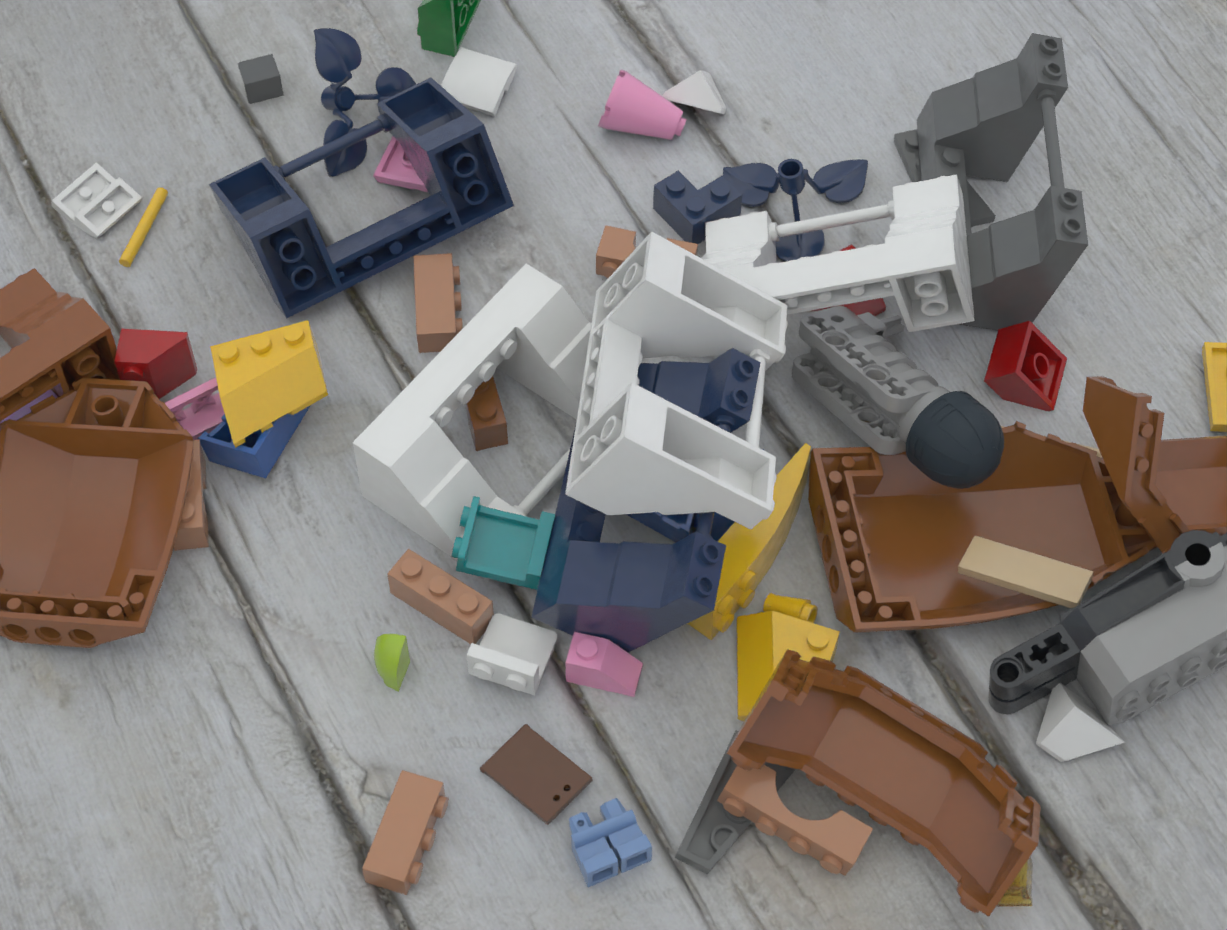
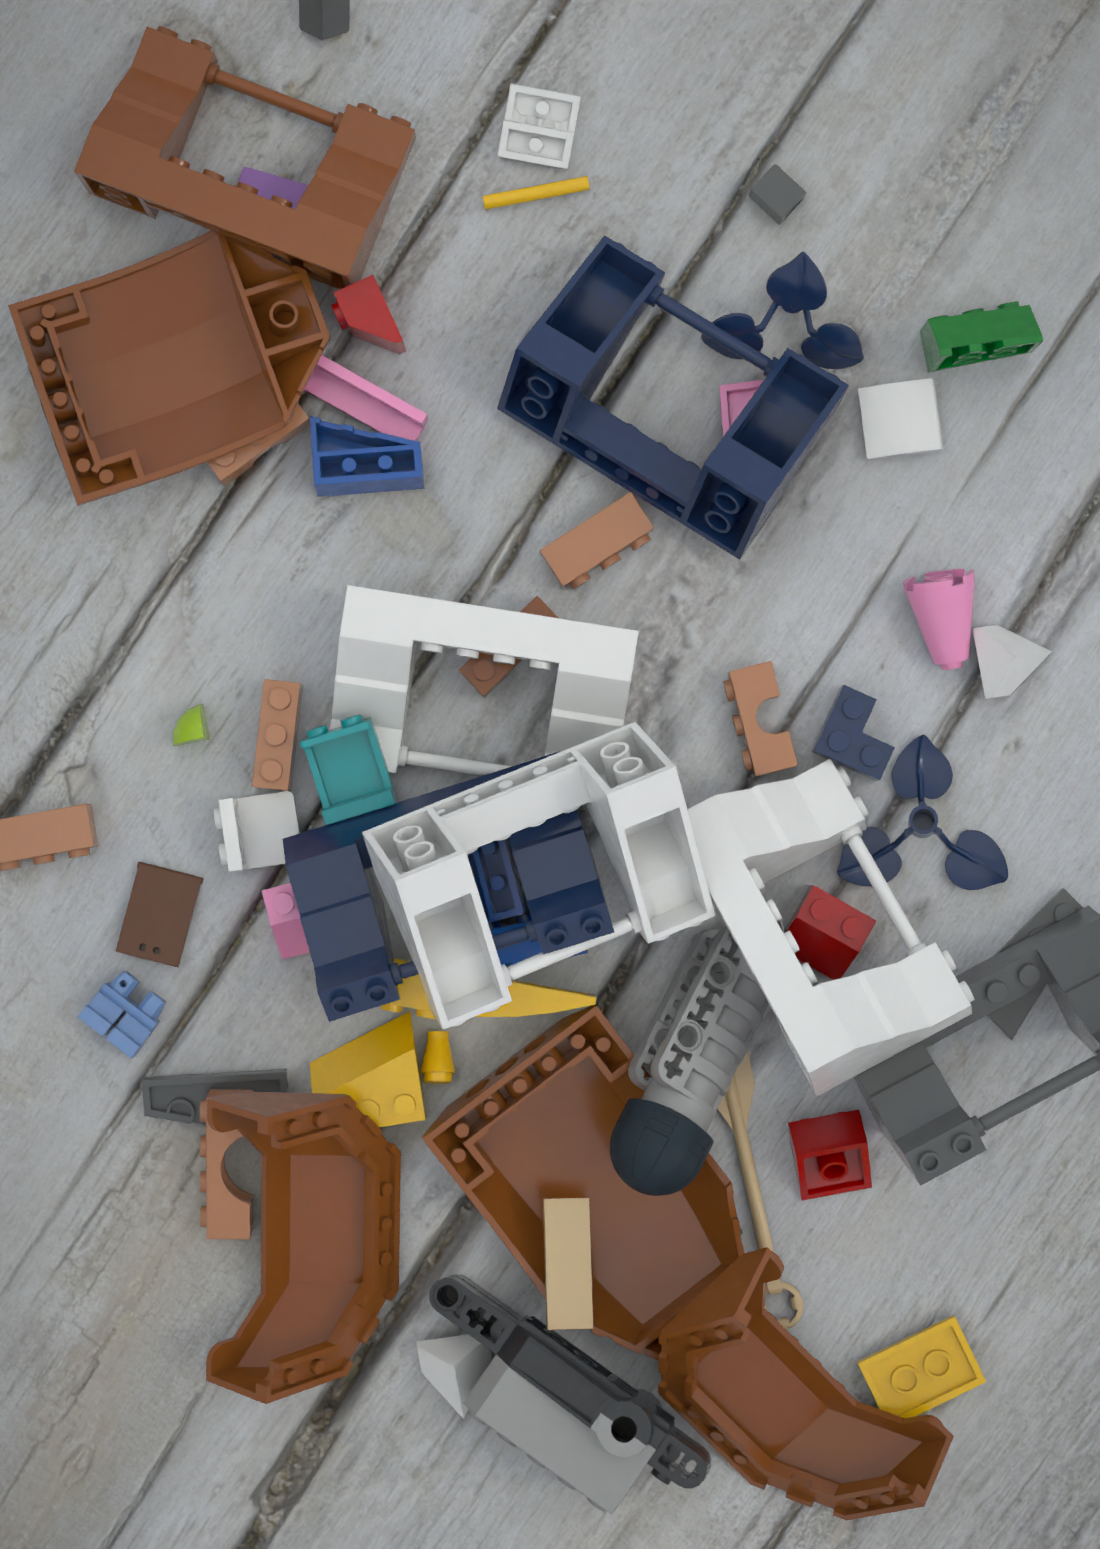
camera: 60 degrees right, 30 degrees up
(267, 377) = (393, 450): yellow wedge -> none

